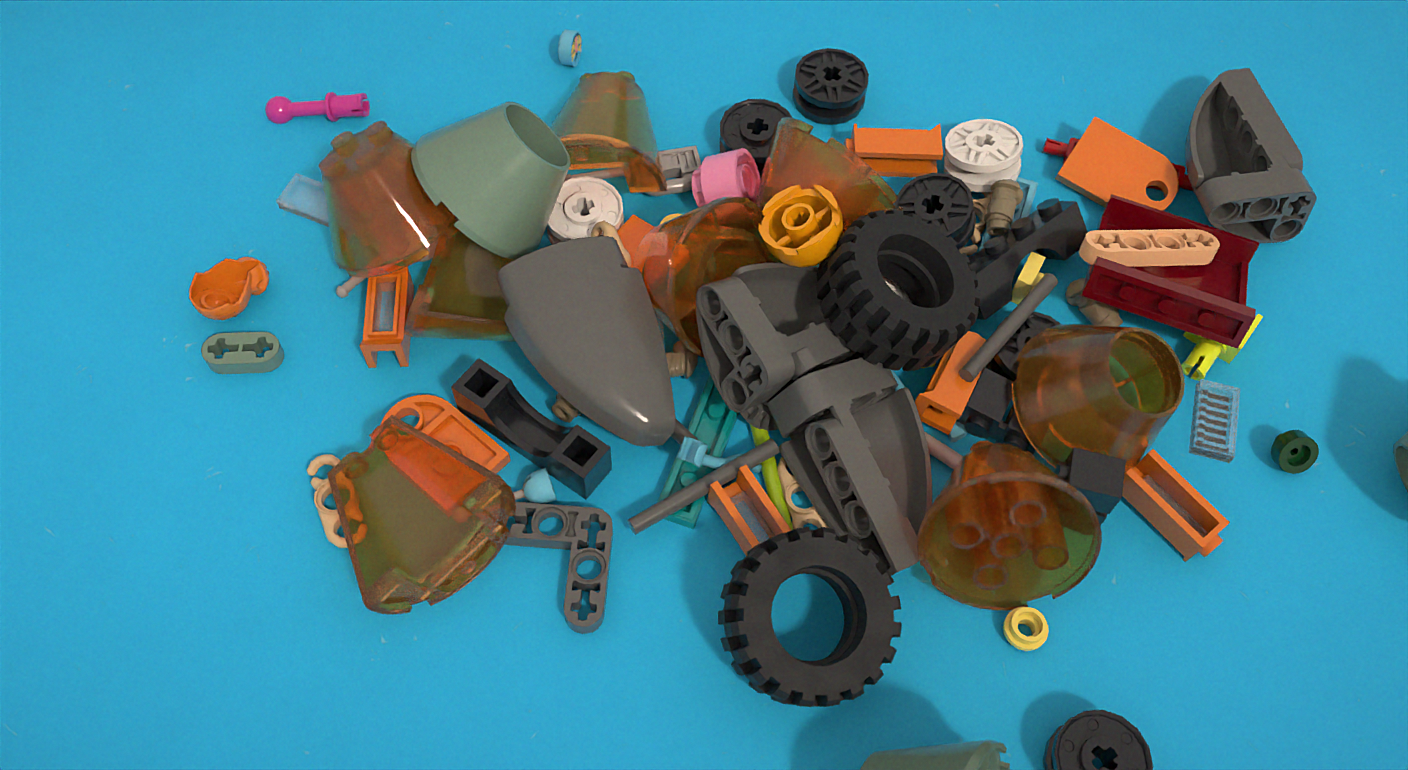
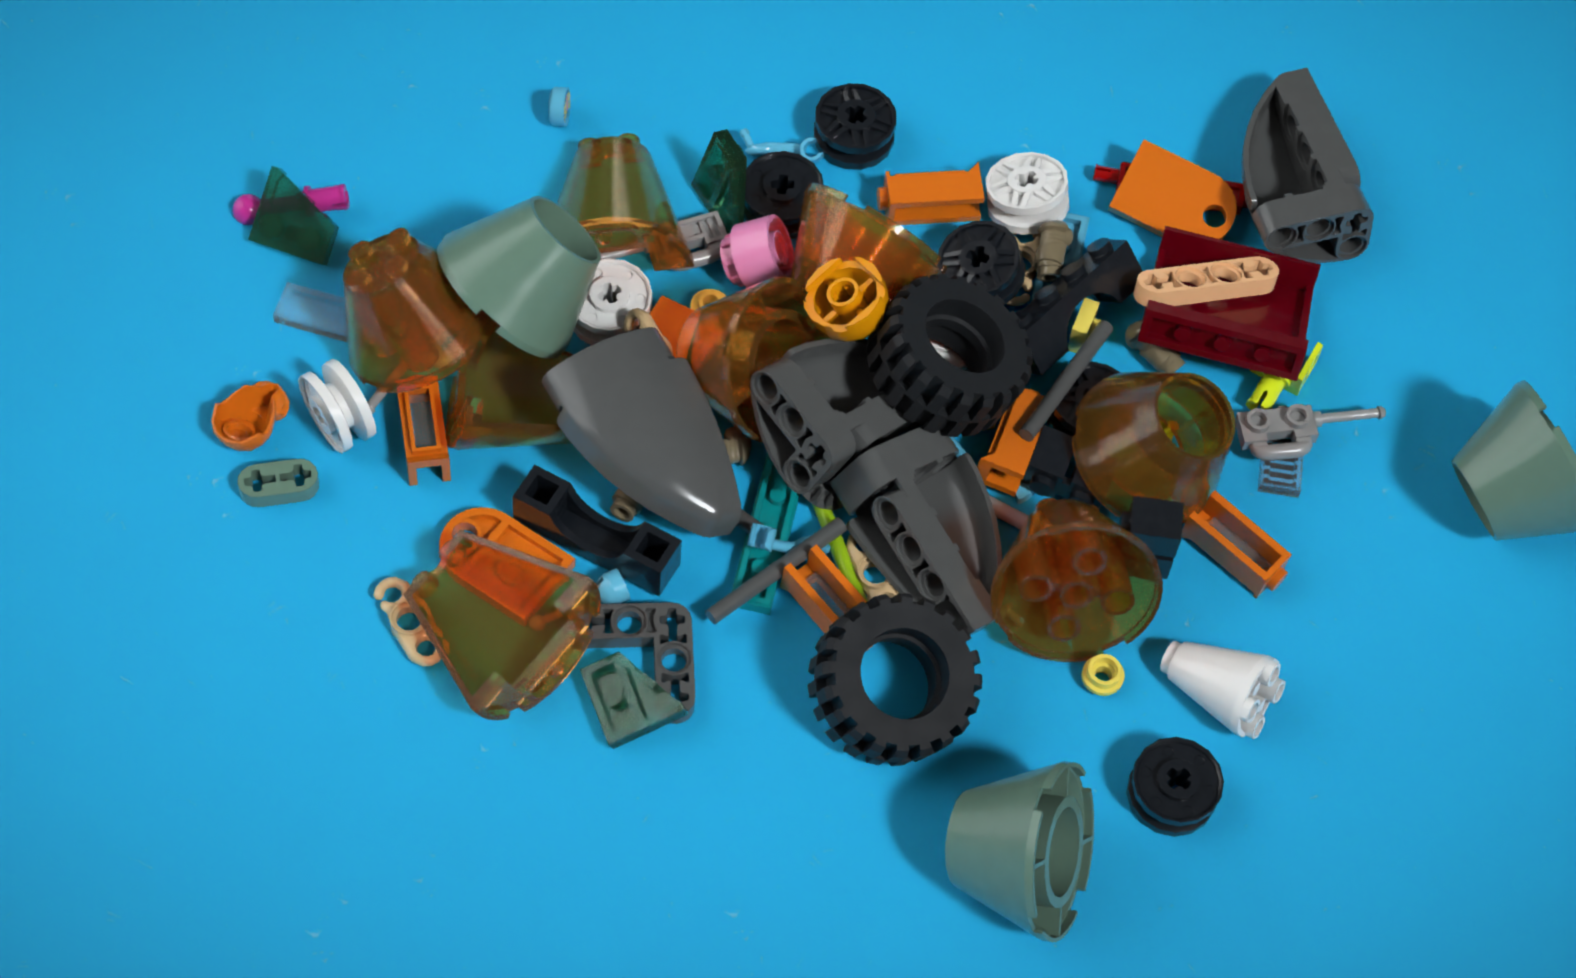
camera: 10 degrees left, 0 degrees up
(306, 285) = (337, 405): none -> white wheel
(308, 117) = (292, 221): none -> clear green wing
(534, 606) = (628, 700): none -> clear green wing
(703, 115) = (722, 179): none -> clear green wing
(736, 98) = (768, 147): none -> medium azure piece
(1156, 652) = (1226, 683): none -> white cone
(1234, 391) = (1292, 422): none -> light grey piece
(1294, 451) = (1359, 479): dark green tile -> none

